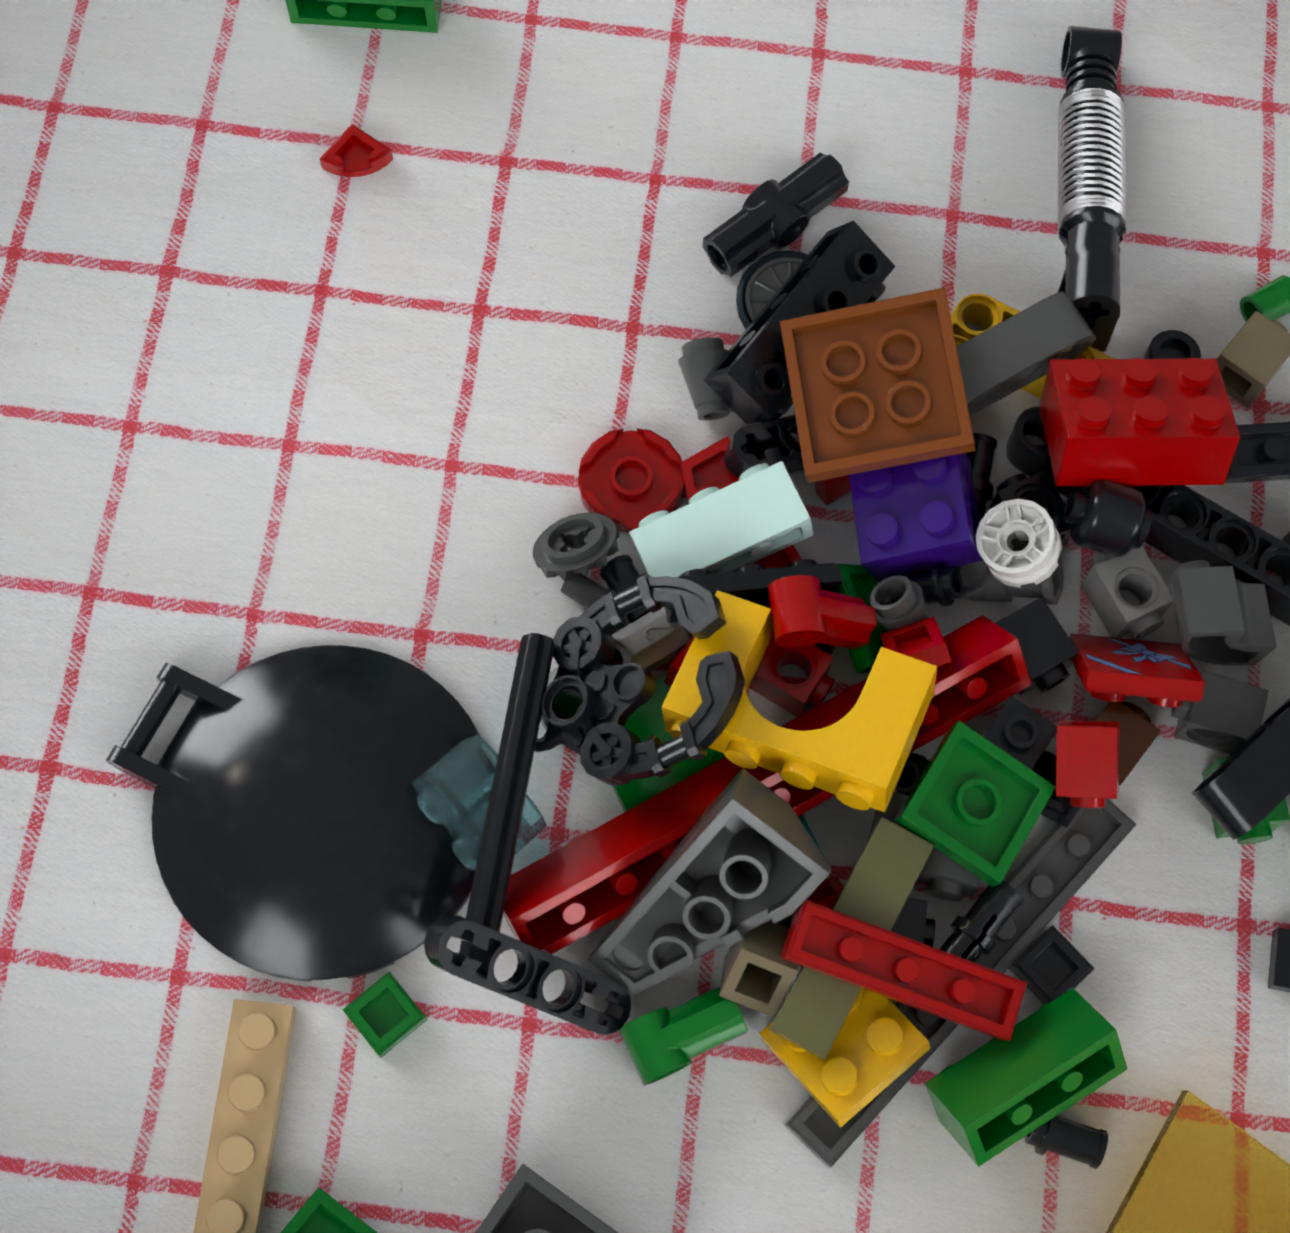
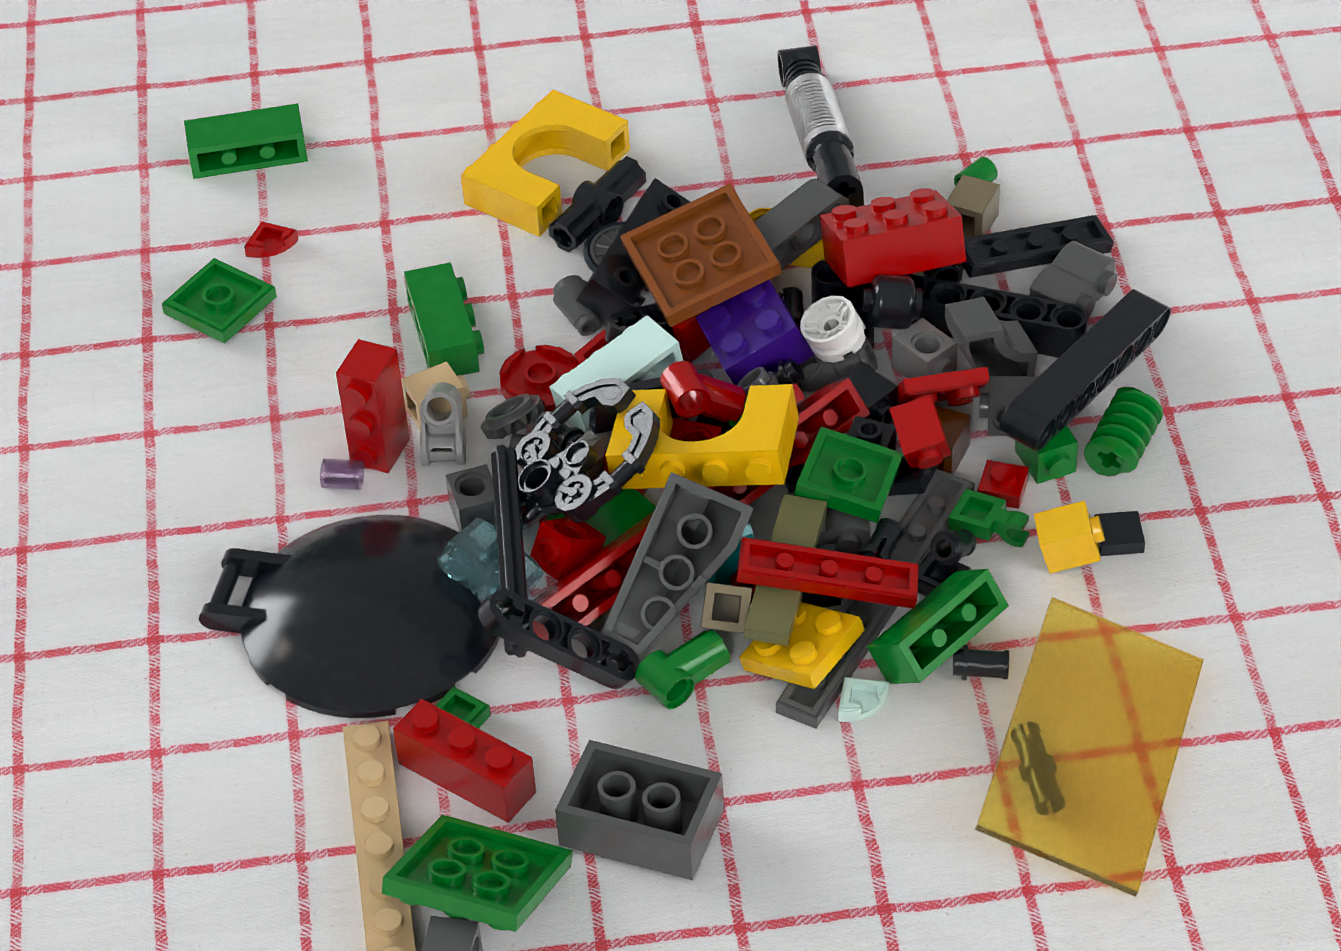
camera: 10 degrees left, 25 degrees down
(266, 240) = (219, 300): none -> green plate
(342, 573) = (342, 474): none -> clear purple hinge
(366, 1111) = (465, 760): none -> red brick
(393, 506) = (373, 405): none -> red brick
(481, 693) = (471, 495): none -> dark grey brick
(482, 542) = (442, 434): none -> light grey piece
(490, 482) = (417, 384): none -> tan brick
(531, 358) = (443, 318): none -> green brick
(579, 803) = (565, 545): none -> red brick
(754, 71) = (553, 126): none -> yellow arch
(897, 1142) = (861, 698): none -> light aqua tile
(1075, 941) = (950, 546): none -> black pin
(1132, 887) = (986, 515): none -> green plate
(1173, 833) = (1004, 482): none -> red plate
(1237, 967) = (1069, 536): none -> yellow brick

